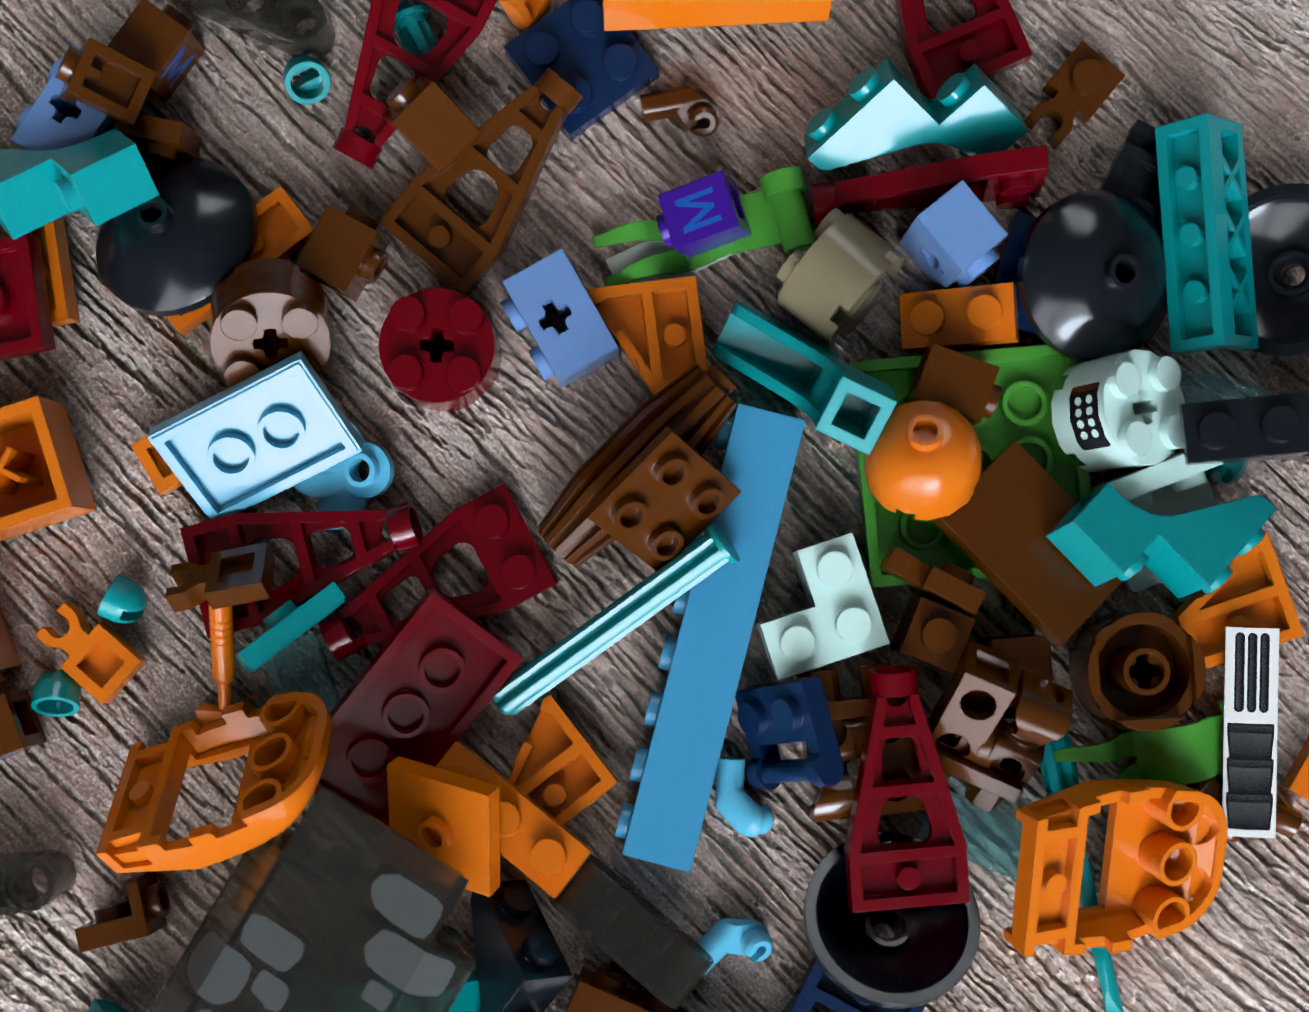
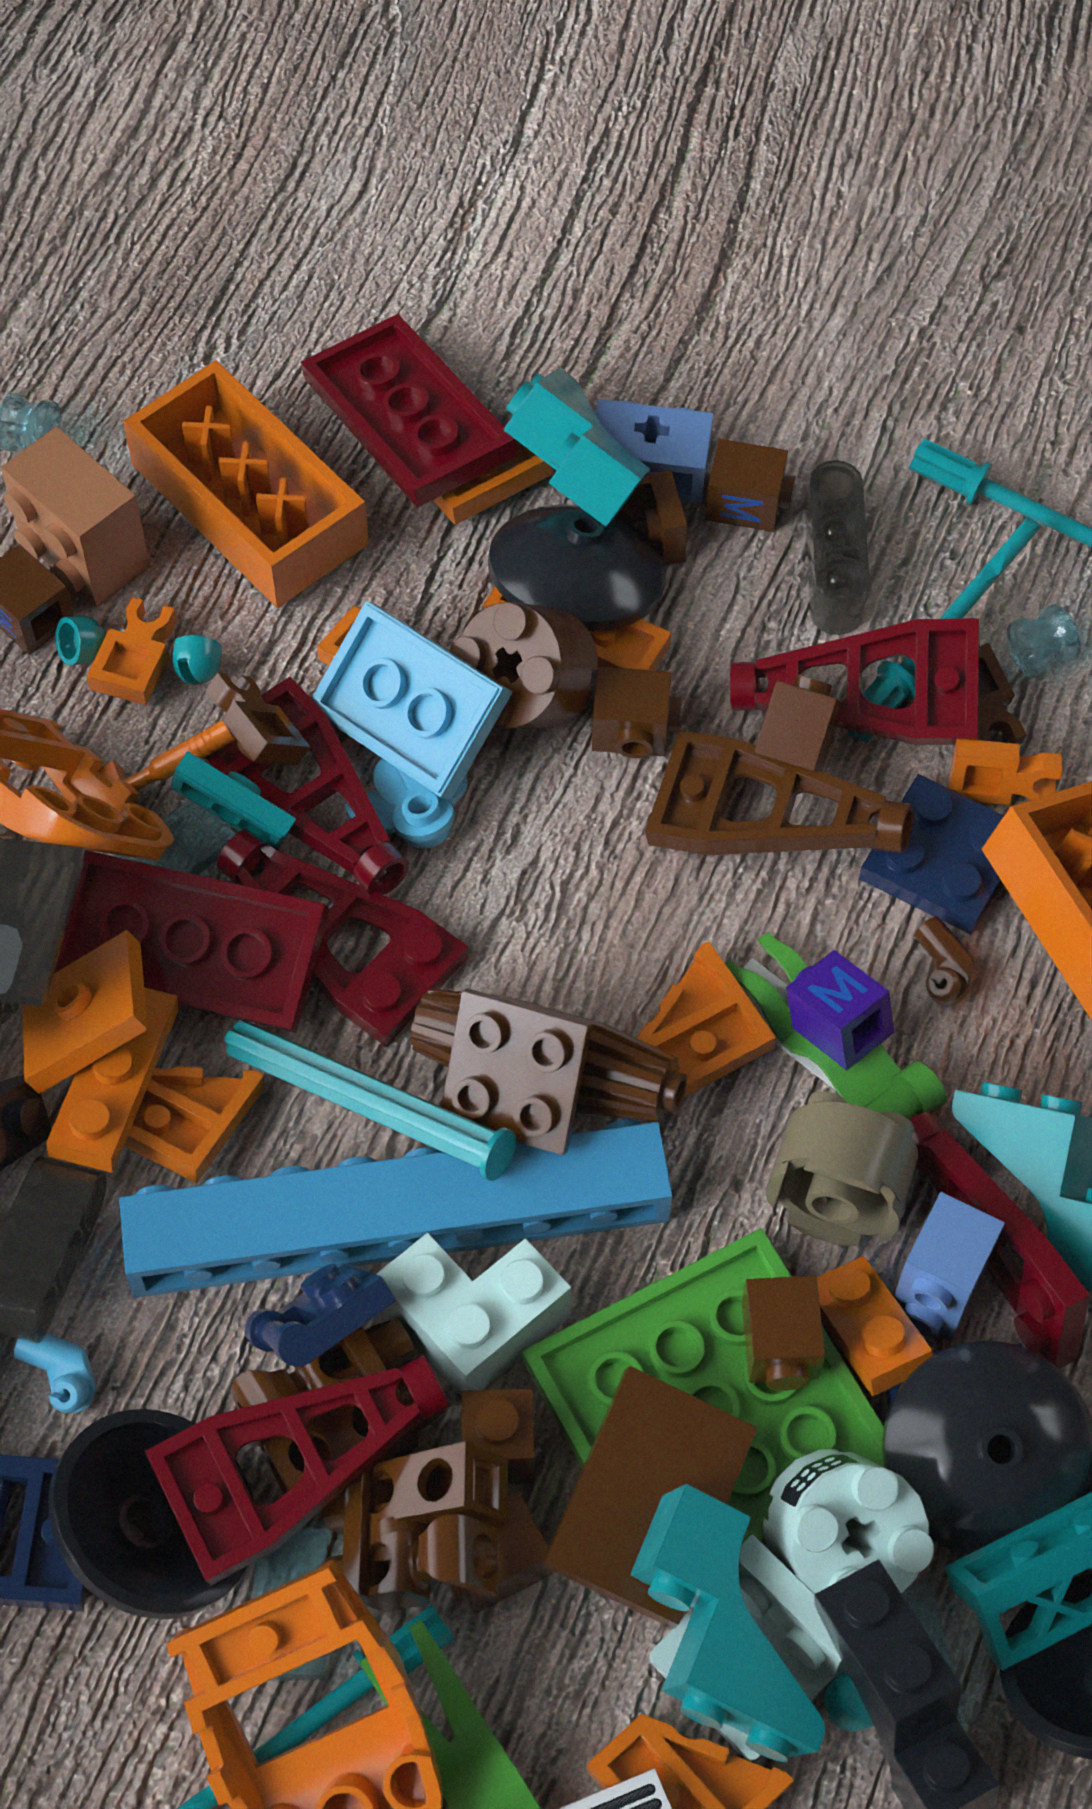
camera: 65 degrees right, 25 degrees down
(105, 80) = (690, 444): reddish brown bracket -> none
(309, 87) = (783, 627): teal hinge -> none
(418, 325) = (577, 830): dark red brick -> none
(551, 287) = (662, 928): medium blue brick -> none
(735, 804) = (219, 1311): medium azure arm -> none
(807, 374) = (723, 1178): teal arch -> none
(924, 460) = (686, 1324): orange cylinder -> none
(948, 584) = (559, 1414): reddish brown plate -> none
(1151, 700) = (576, 1643): reddish brown brick -> none

